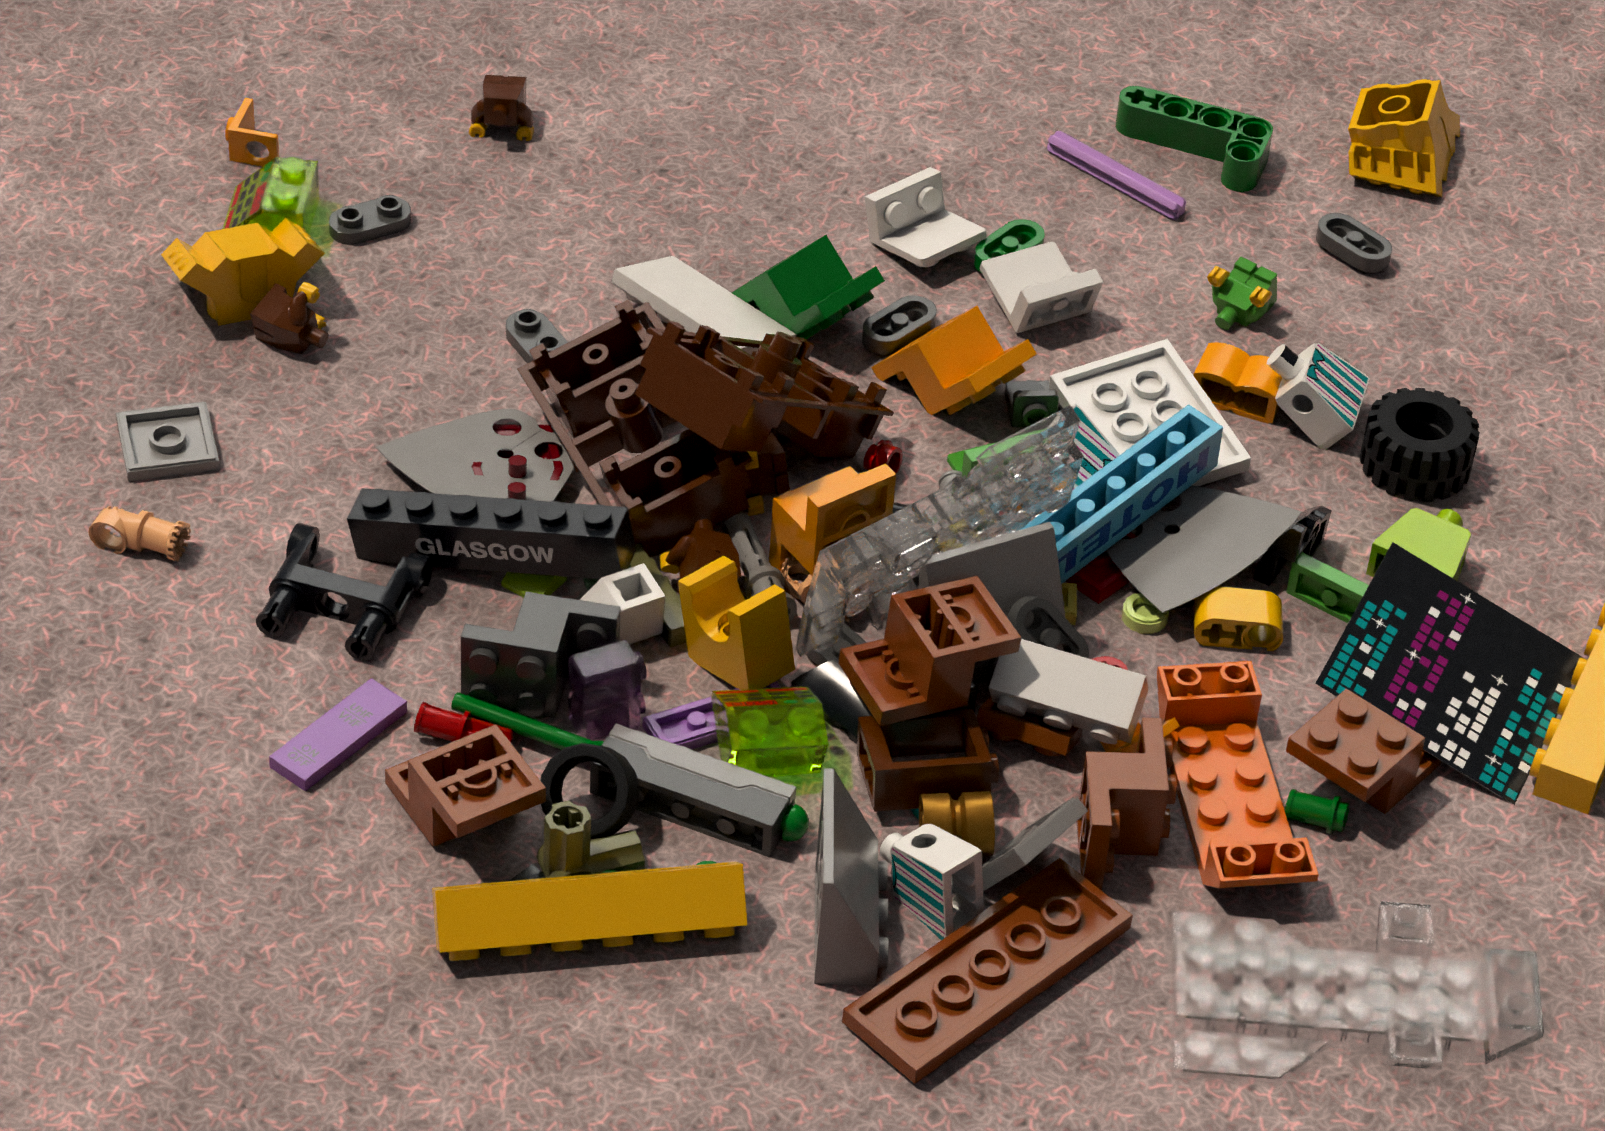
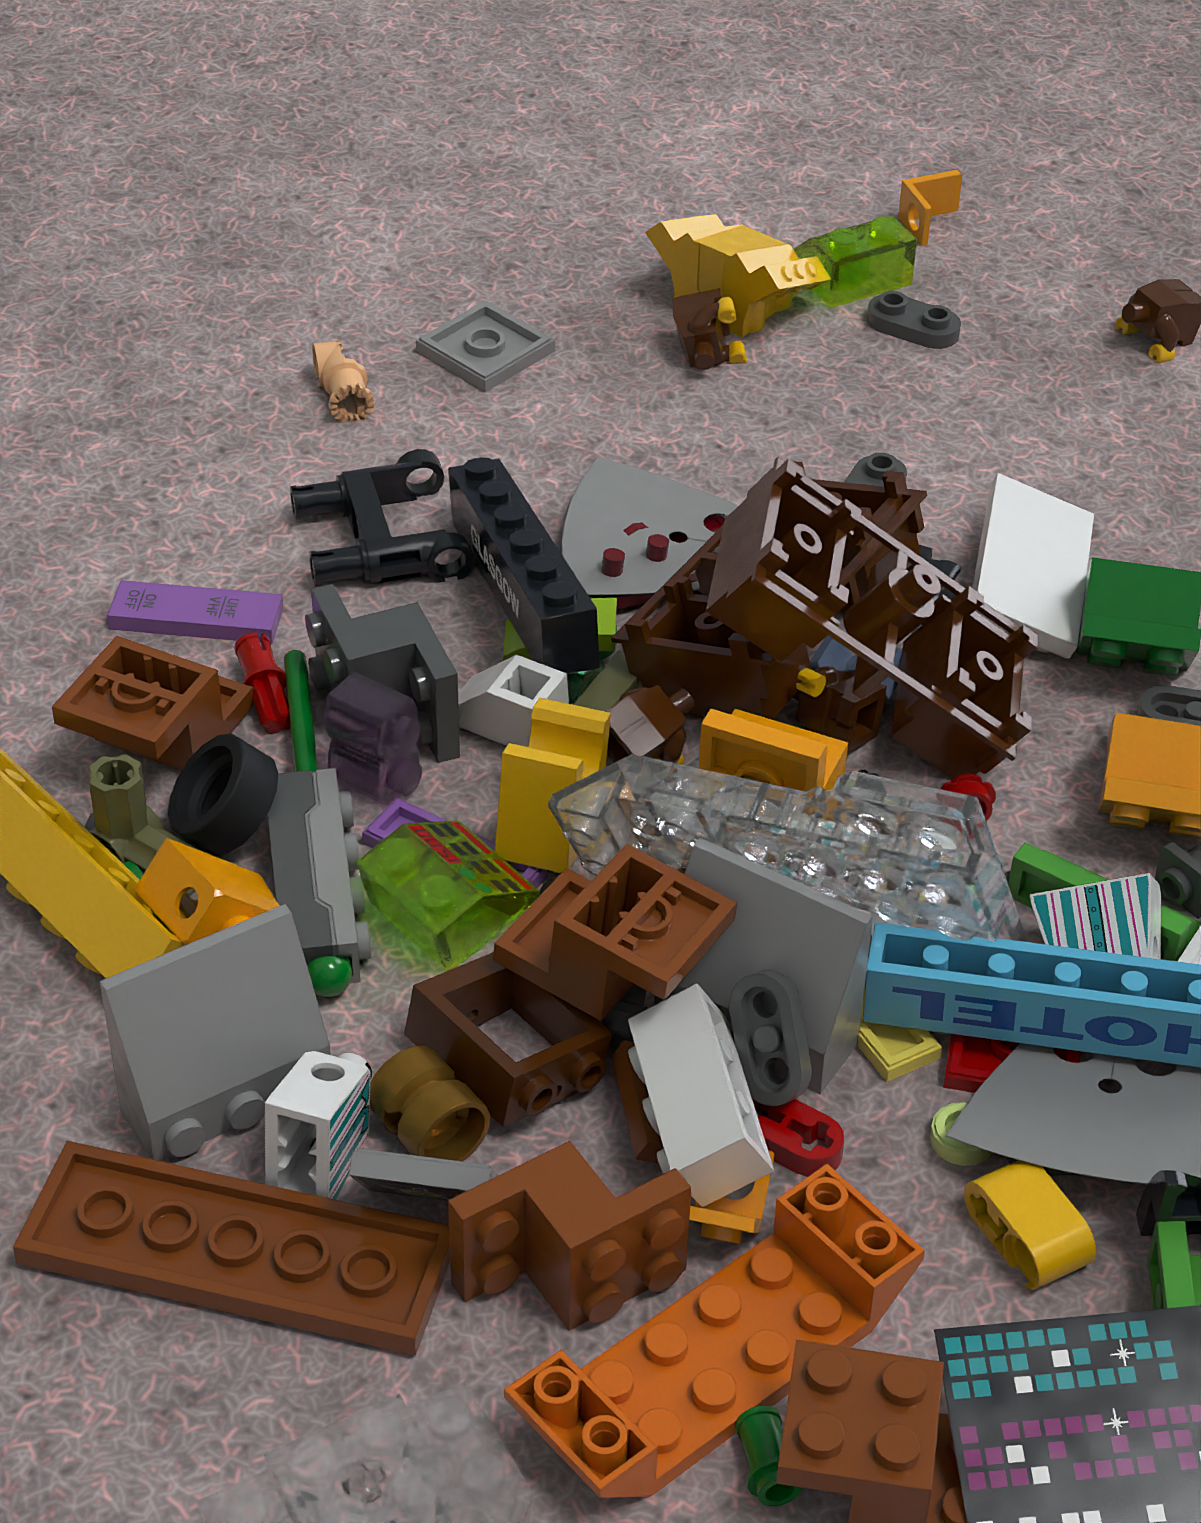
camera: 60 degrees right, 0 degrees up
(695, 836) = (224, 891): none -> light orange torso

